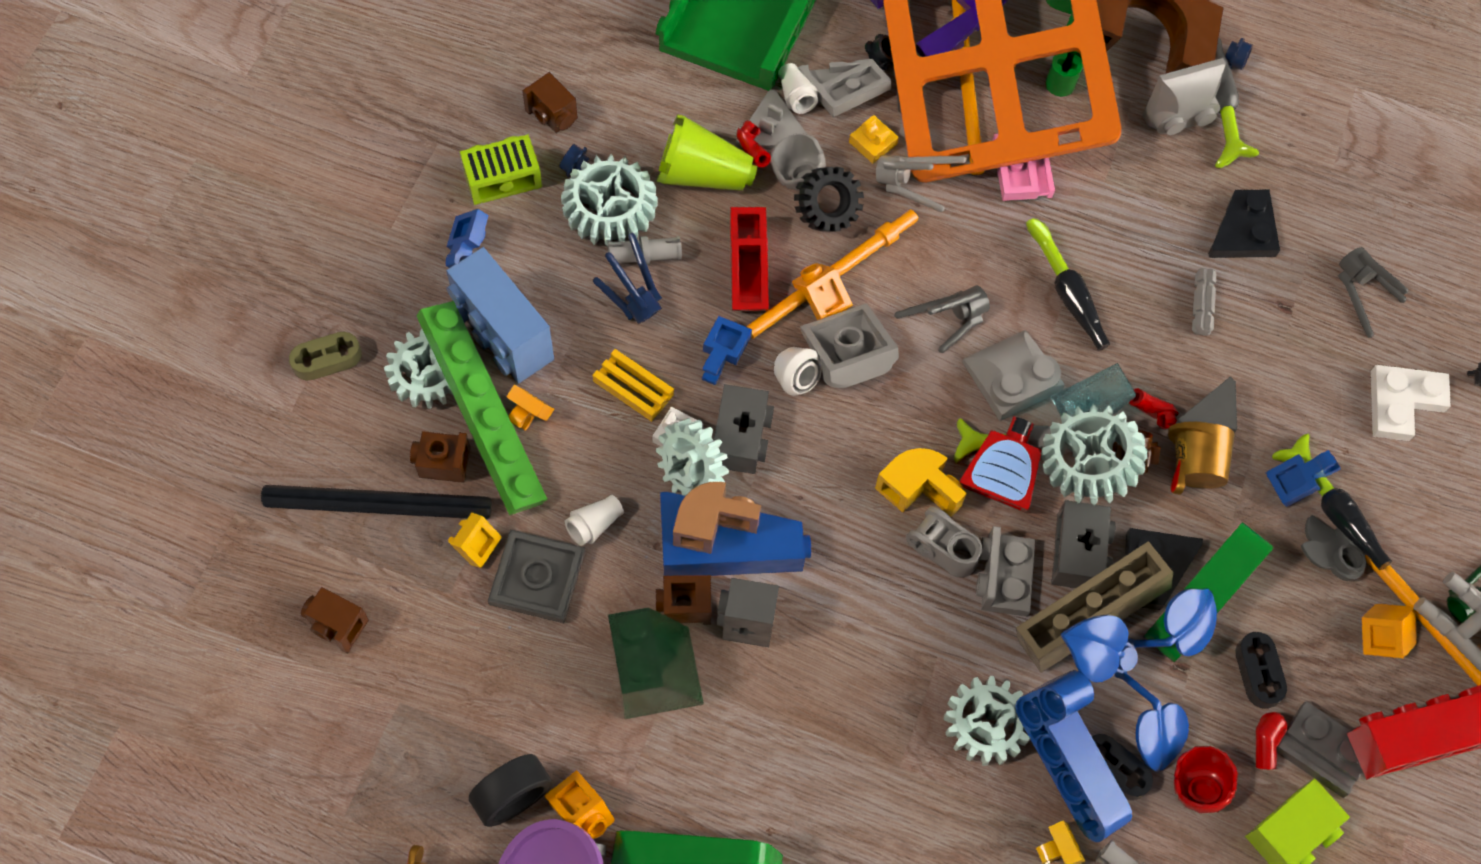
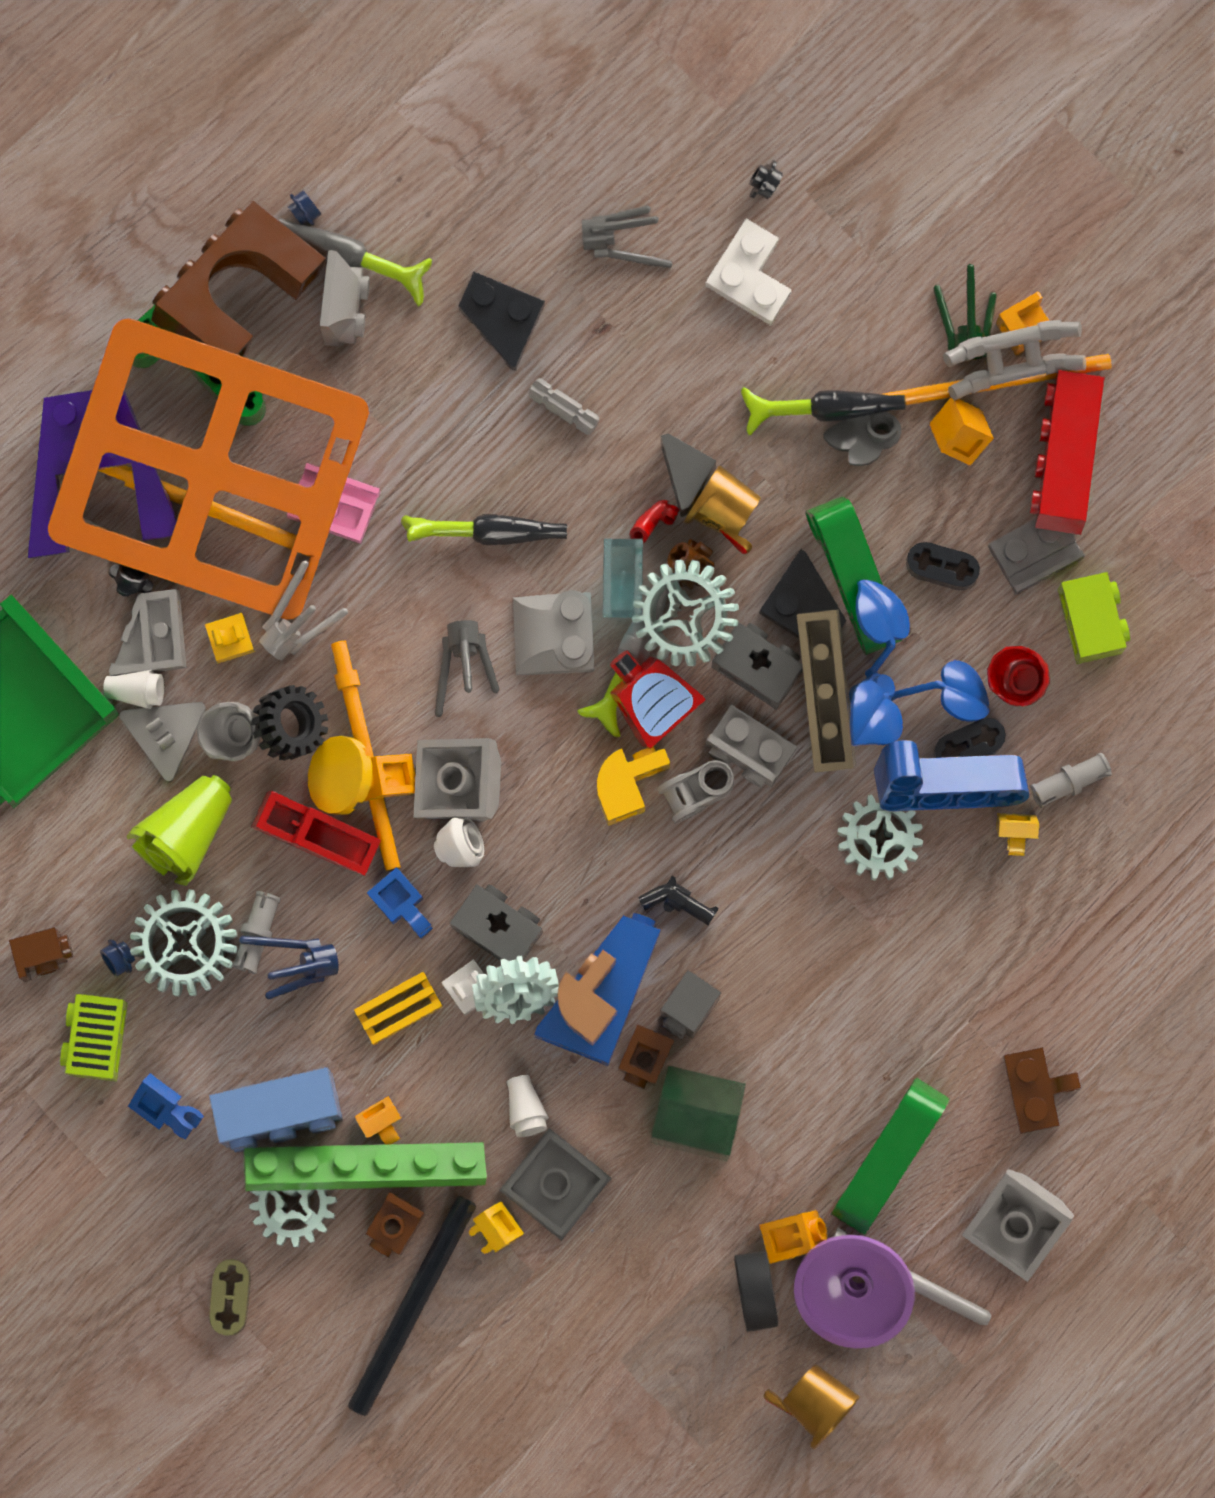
camera: 60 degrees left, 15 degrees up
(335, 618) = (516, 1389): reddish brown brick -> none
(746, 137) = (175, 769): red arm -> none
(805, 253) = (339, 775): none -> yellow tile
(840, 569) = (677, 898): none -> black piece
(1268, 736) = (1005, 597): red arm -> none
(1296, 479) = (783, 427): blue plate -> none

